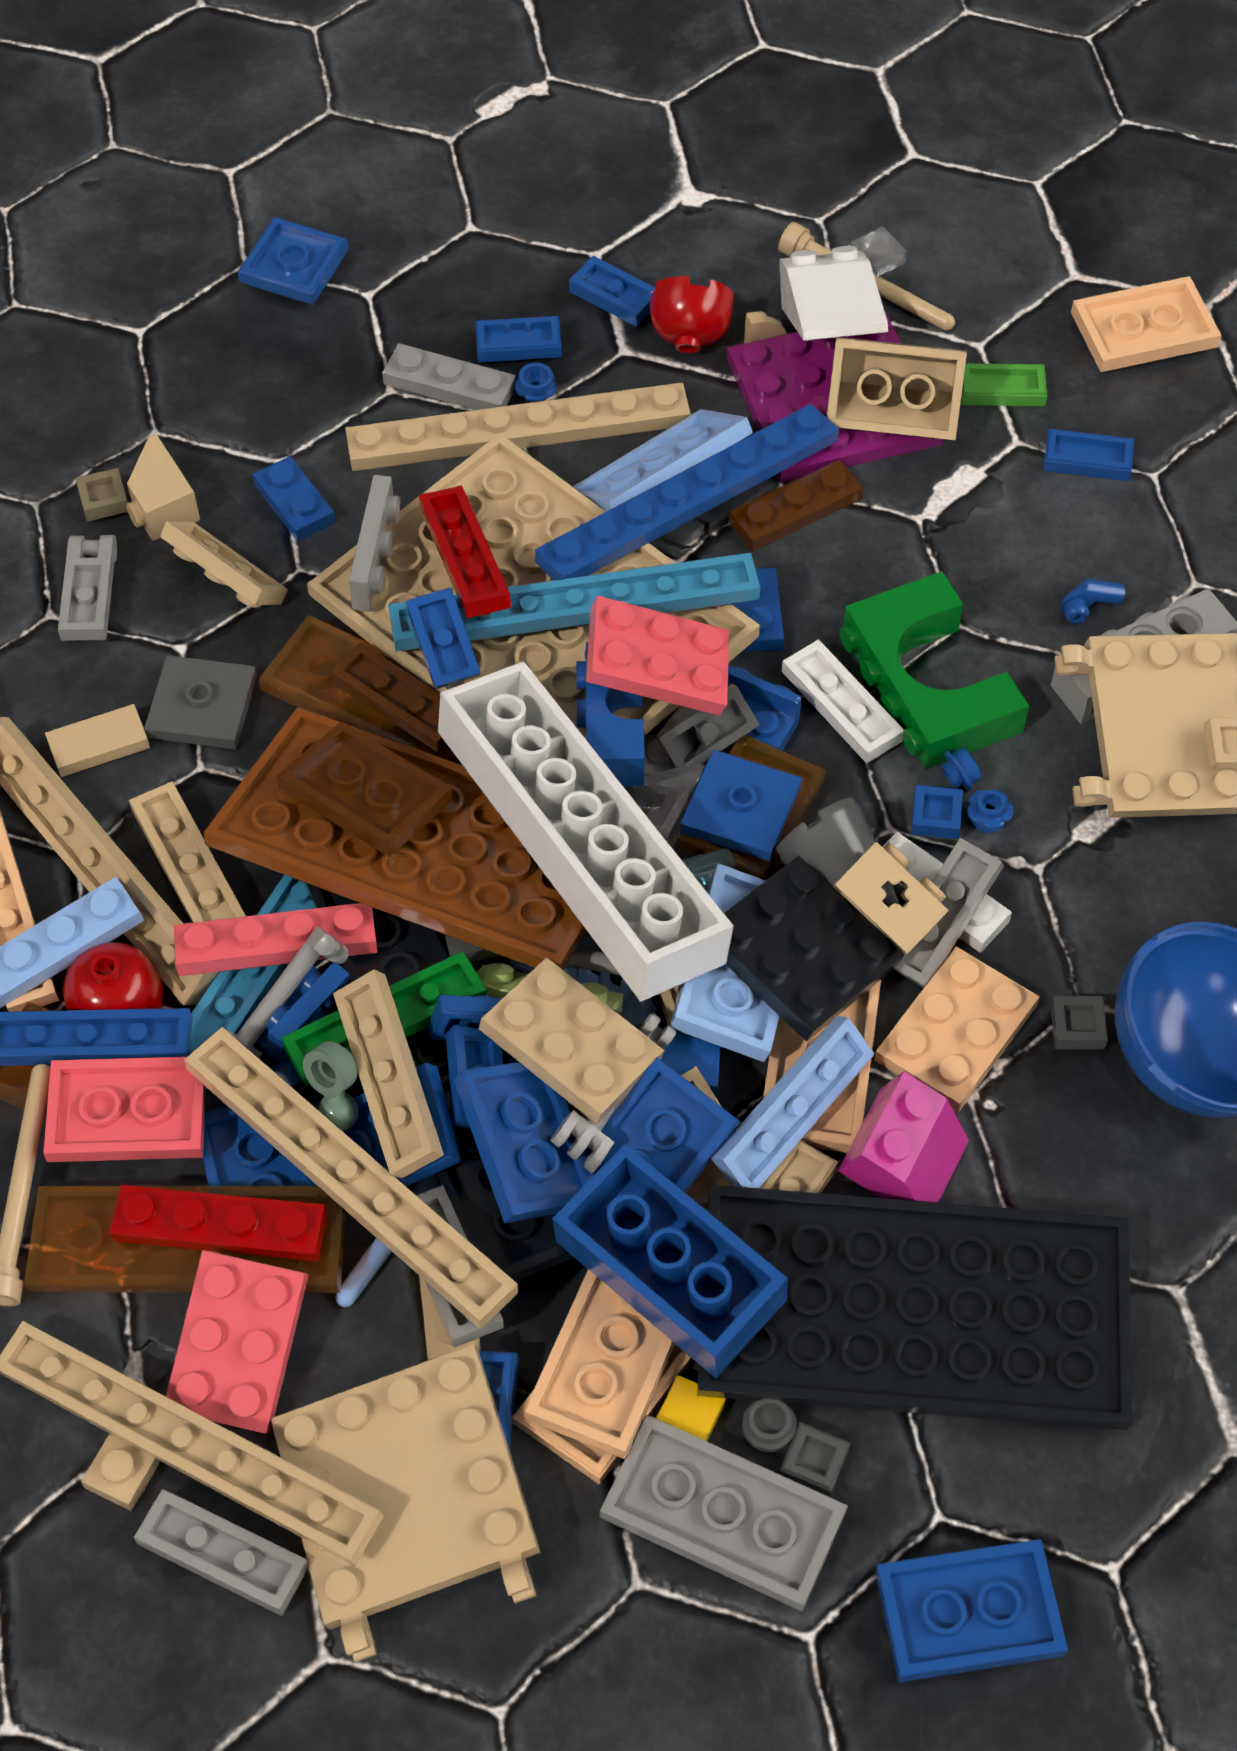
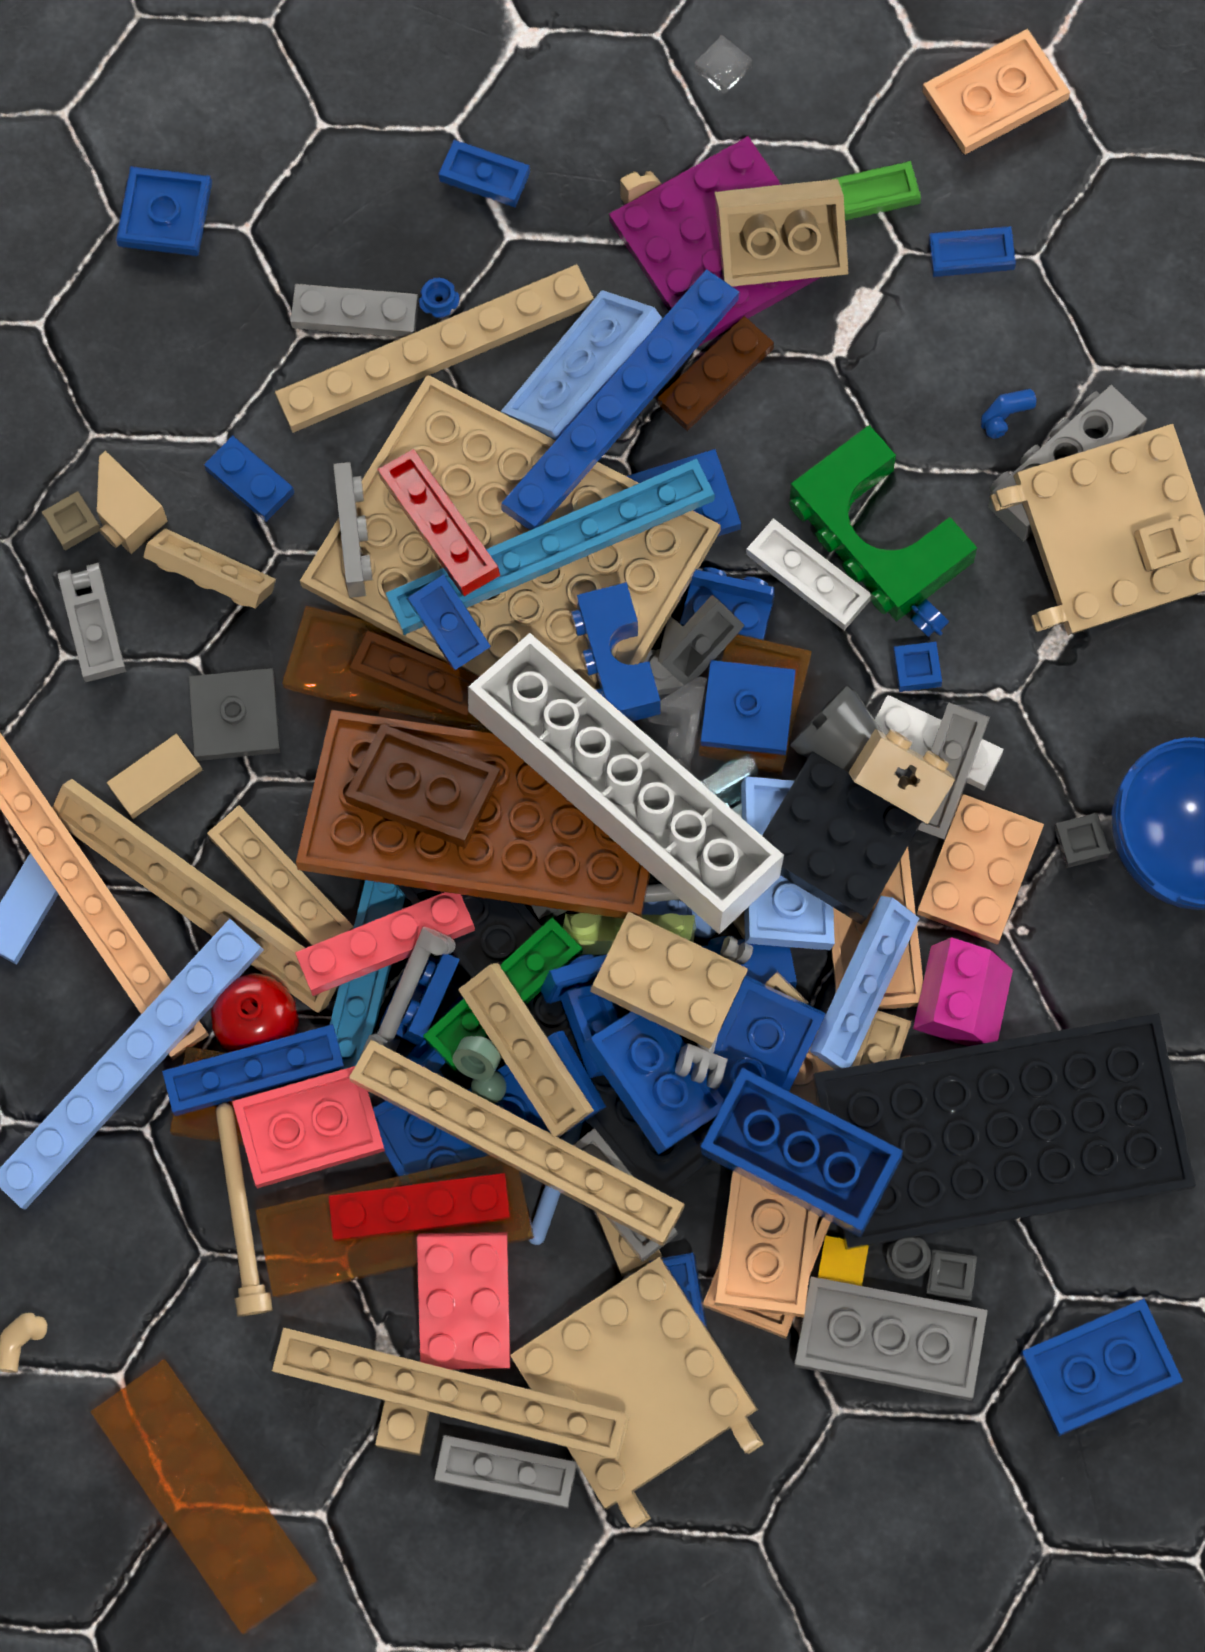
camera: 10 degrees left, 15 degrees up
(518, 339) = (408, 251): blue plate -> none
(658, 655) = (645, 594): coral plate -> none
(690, 313) = (566, 191): red cylinder -> none
(798, 238) = (647, 74): tan piece -> none
(831, 294) = (697, 143): white slope -> none
(986, 819) = (959, 661): blue plate -> none

